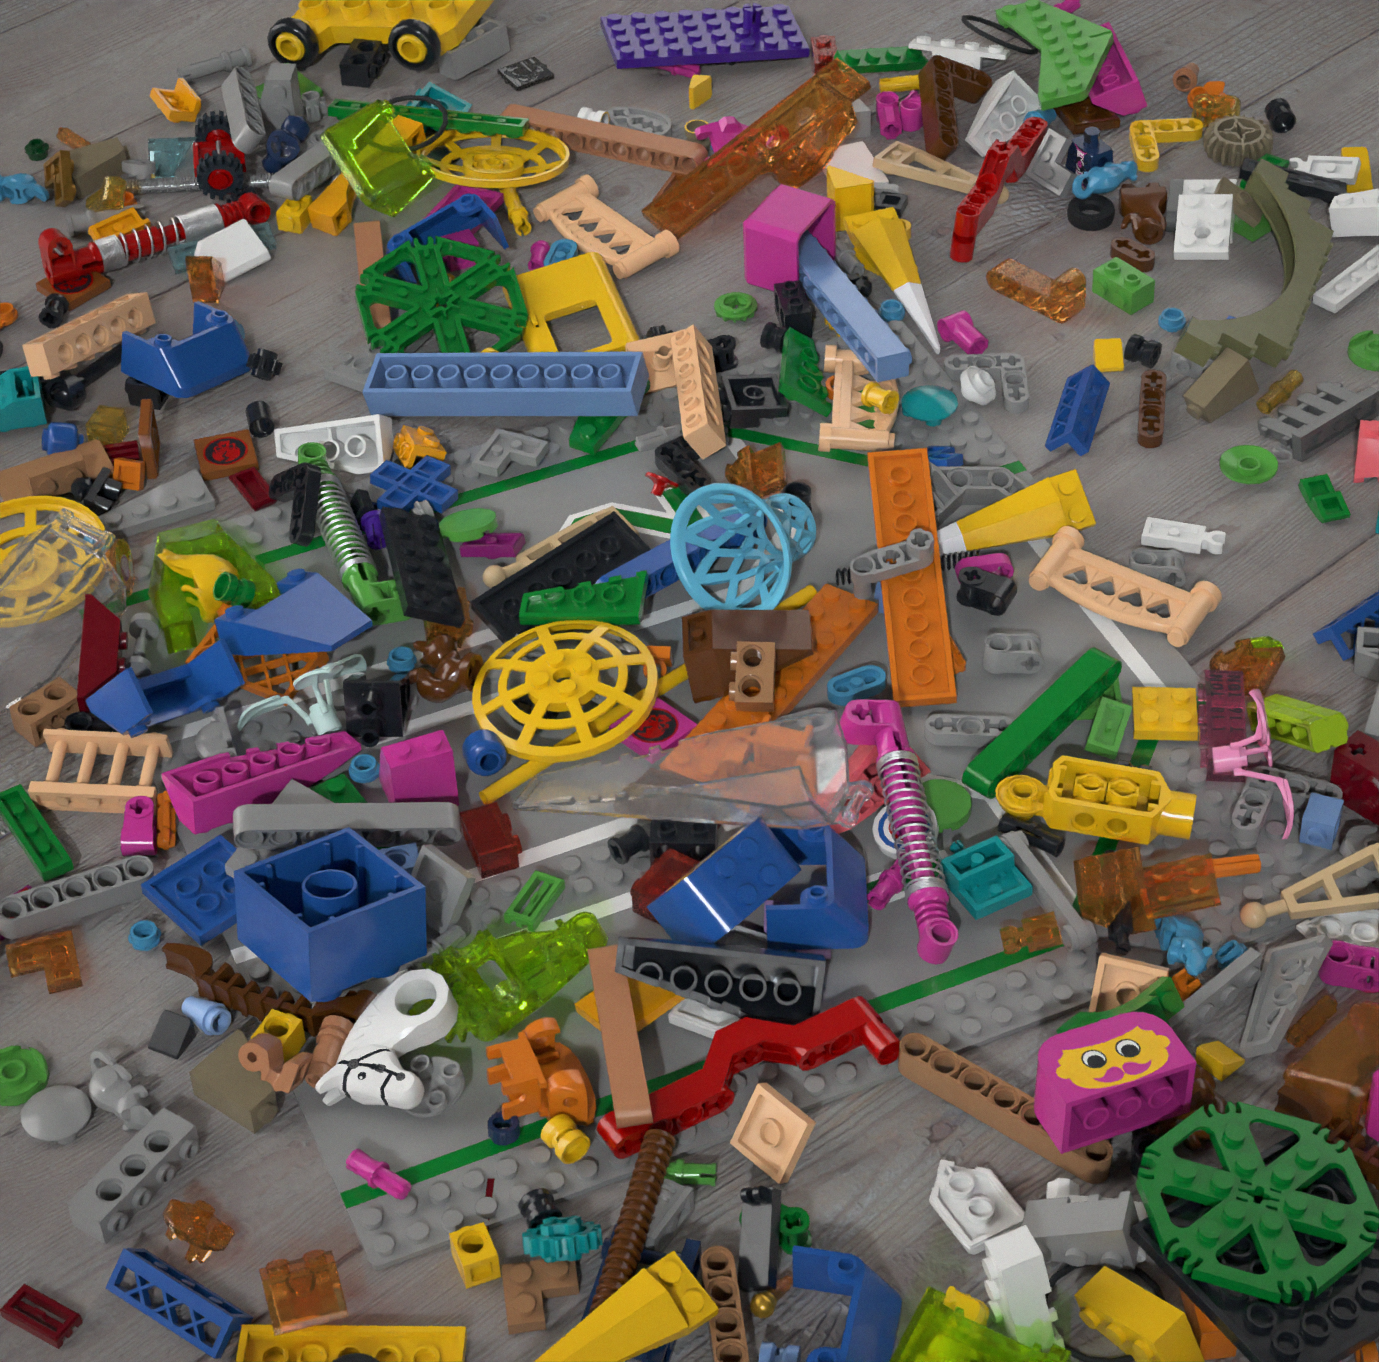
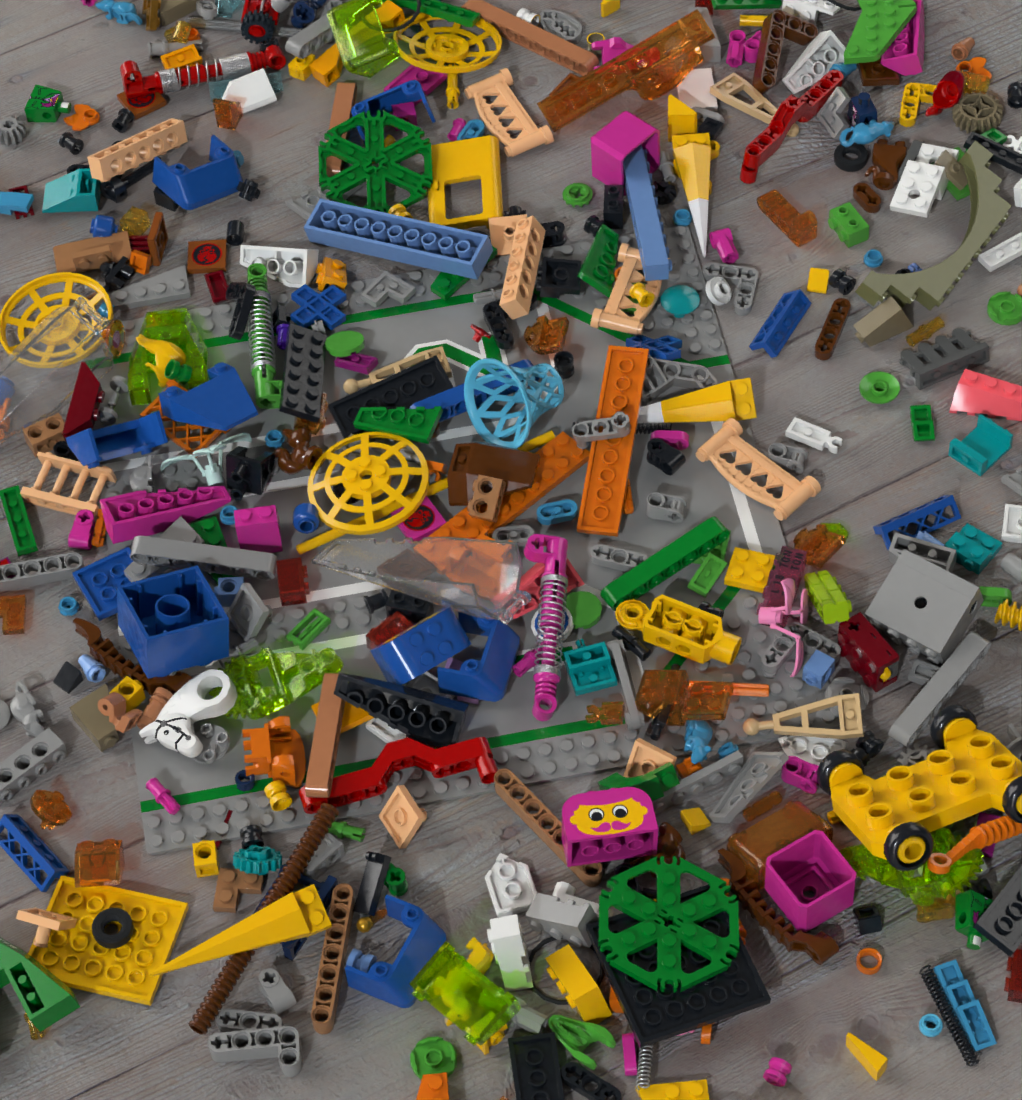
camera: 15 degrees right, 10 degrees up
(1194, 117) = (947, 93): none -> red hair

